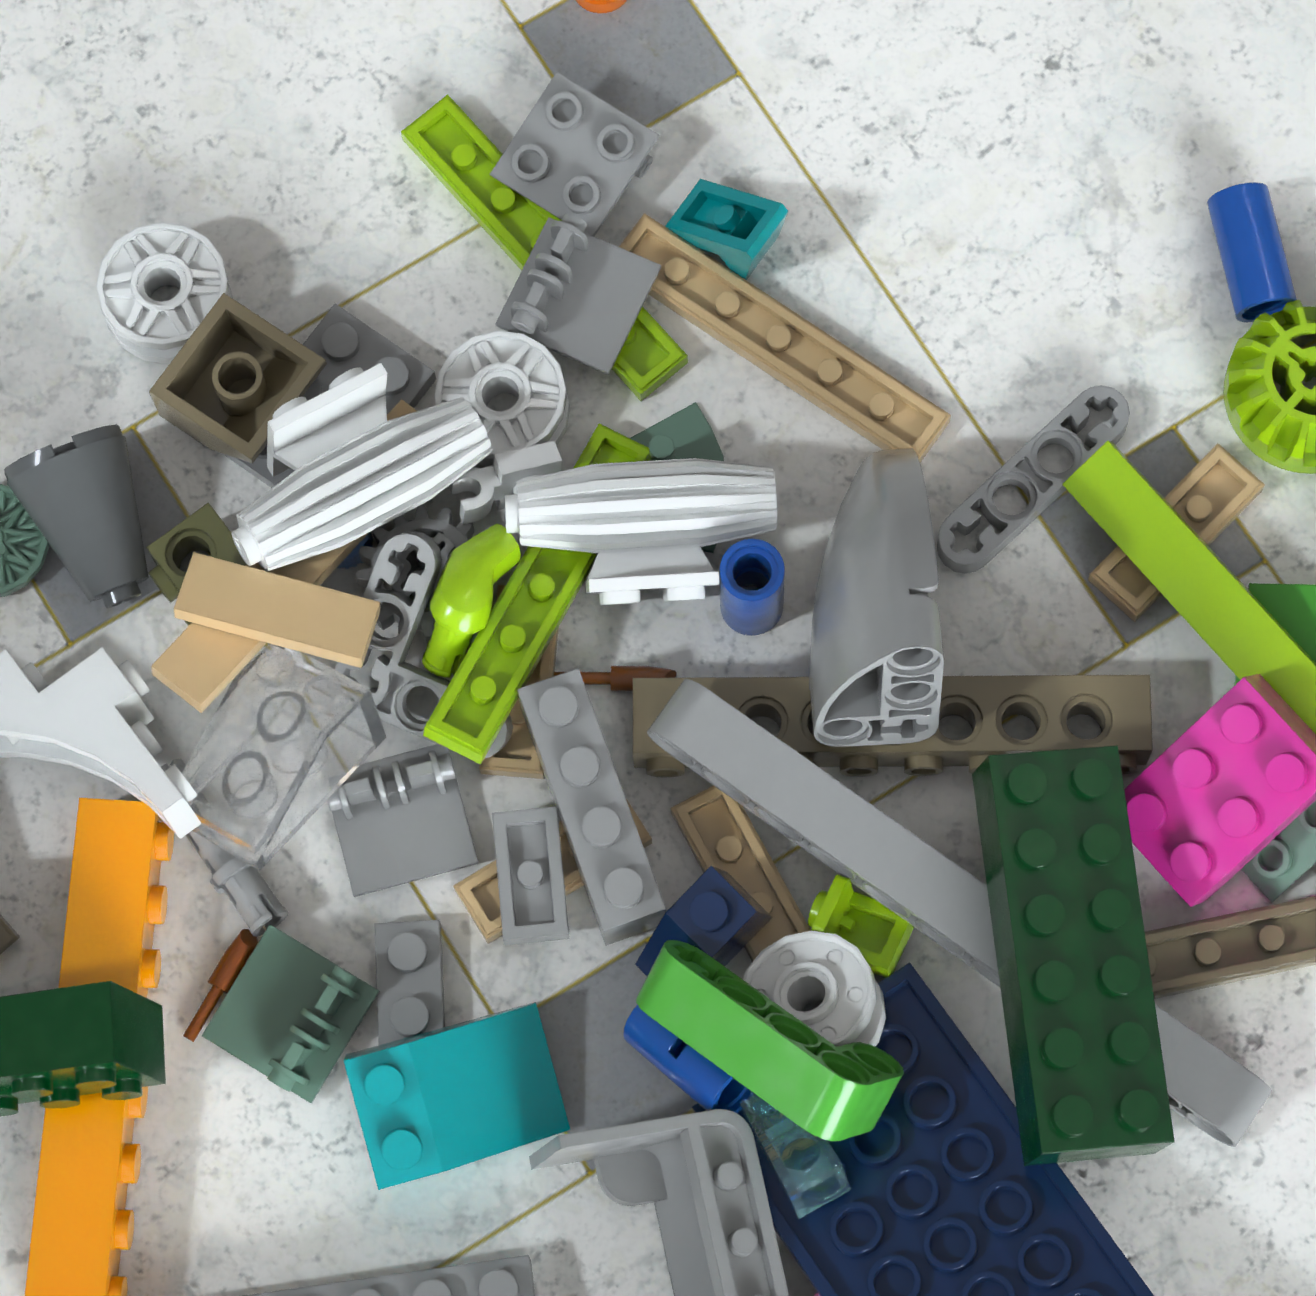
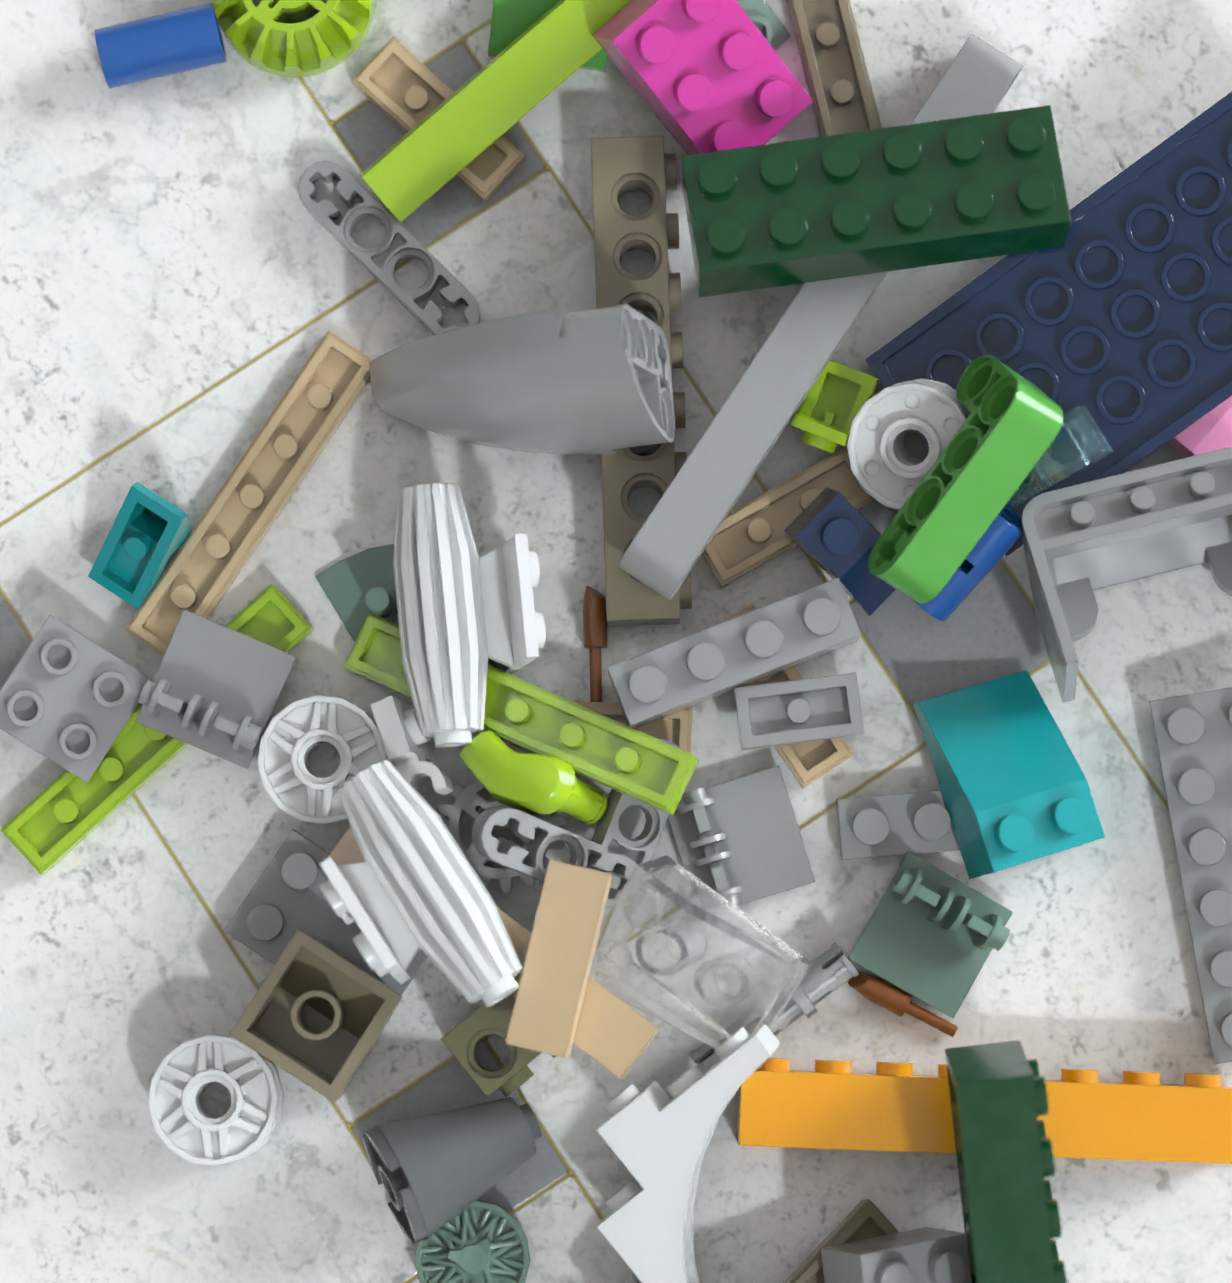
camera: 95 degrees left, 10 degrees up
(752, 564) = (510, 487): blue pin -> none

